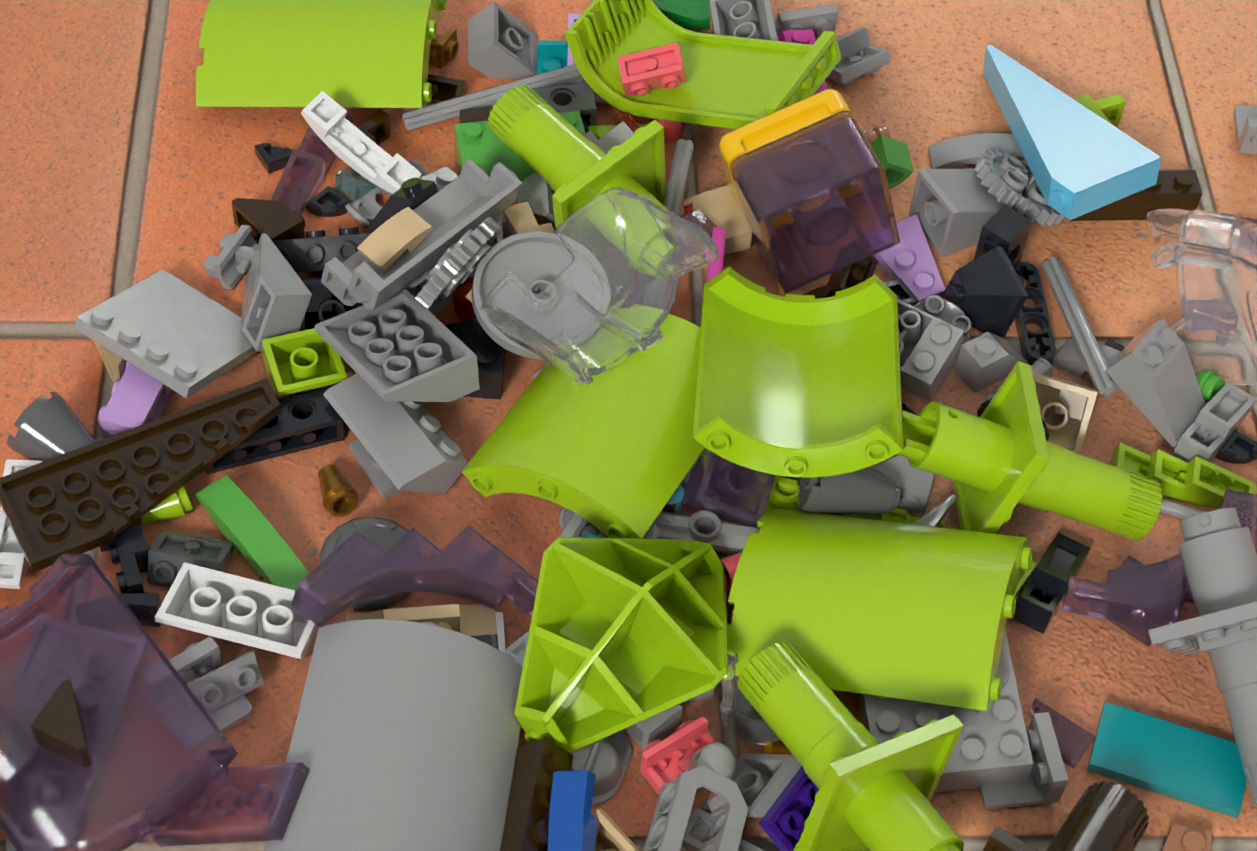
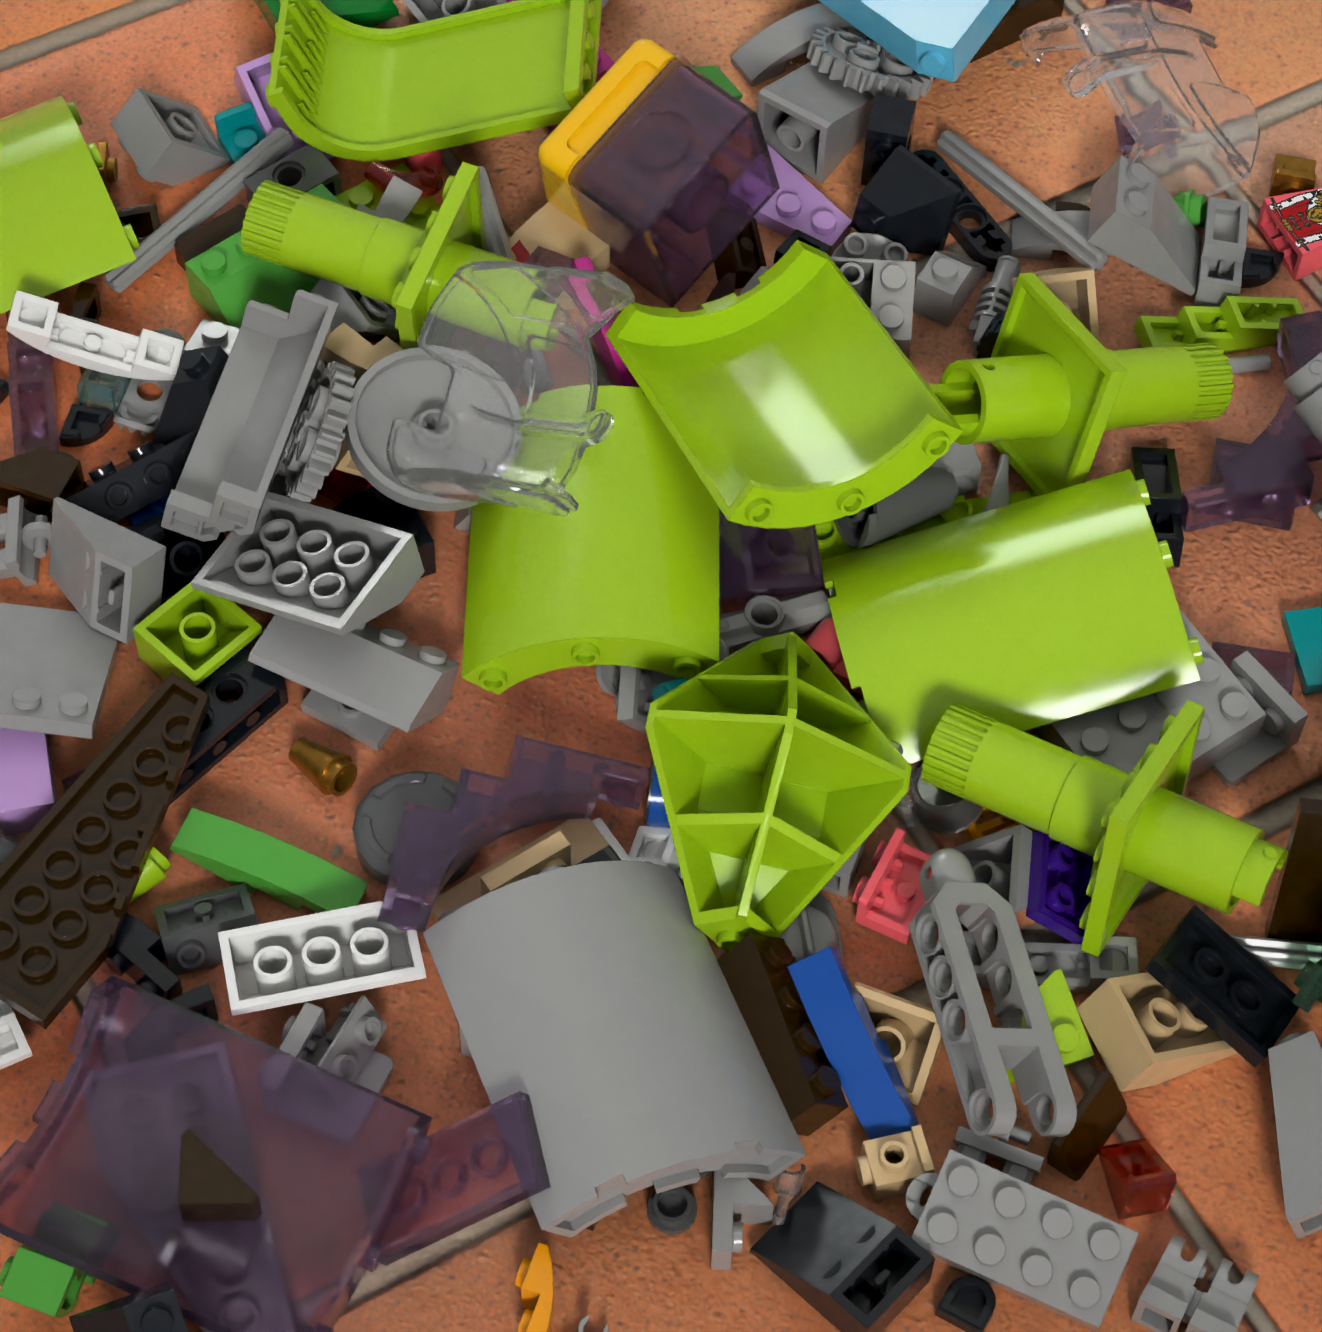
camera: 25 degrees left, 5 degrees up
(393, 237) = (220, 435): tan slope -> none
(652, 70) = (381, 97): coral bracket -> none

